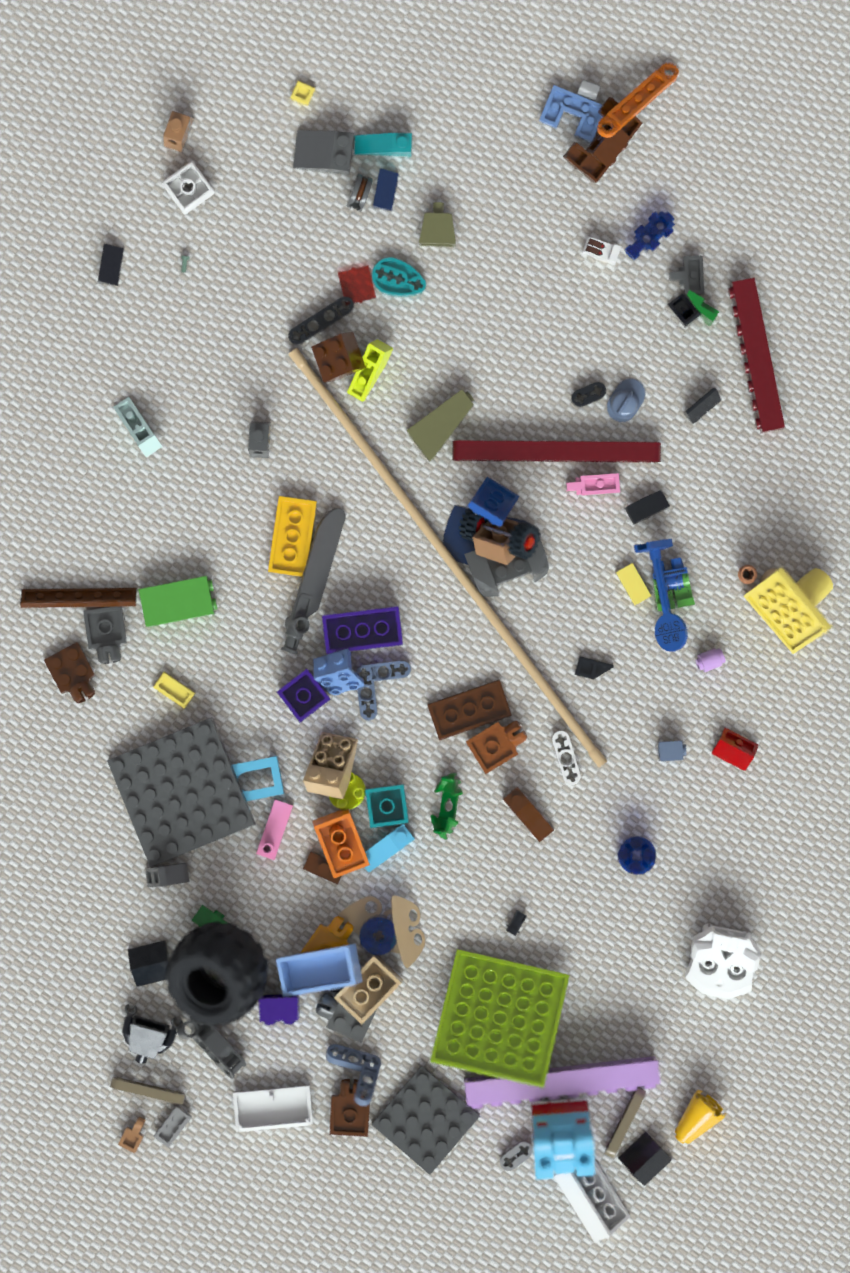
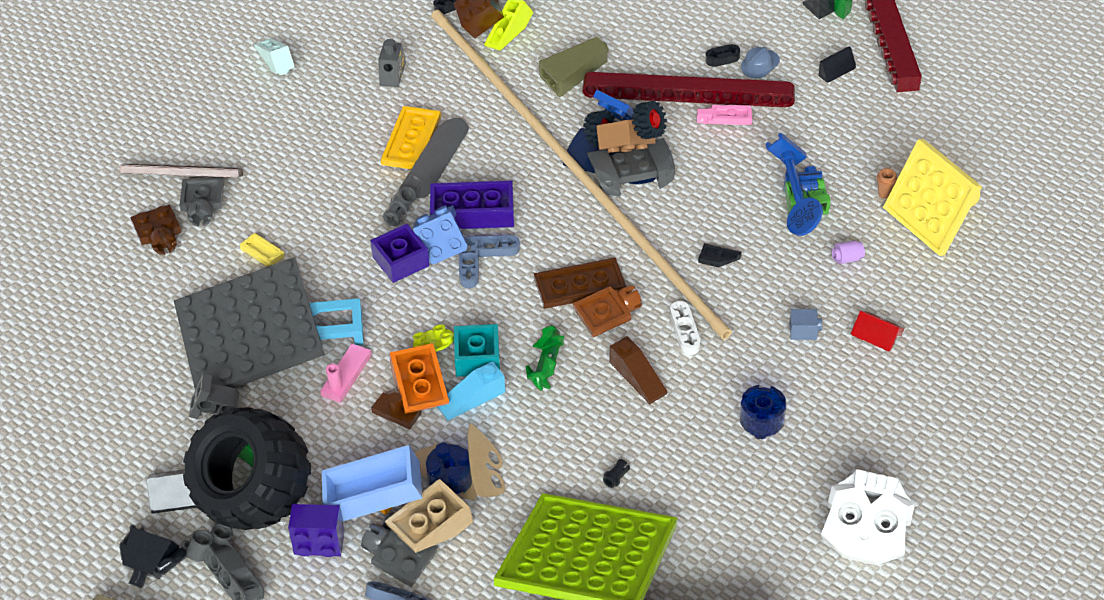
camera: 10 degrees right, 40 degrees down
(177, 601) = (282, 178): bright green brick -> none
(331, 765) = (418, 314): tan slope -> none
(633, 584) = (764, 192): light yellow tile -> none
(647, 506) = (789, 129): black slope -> none

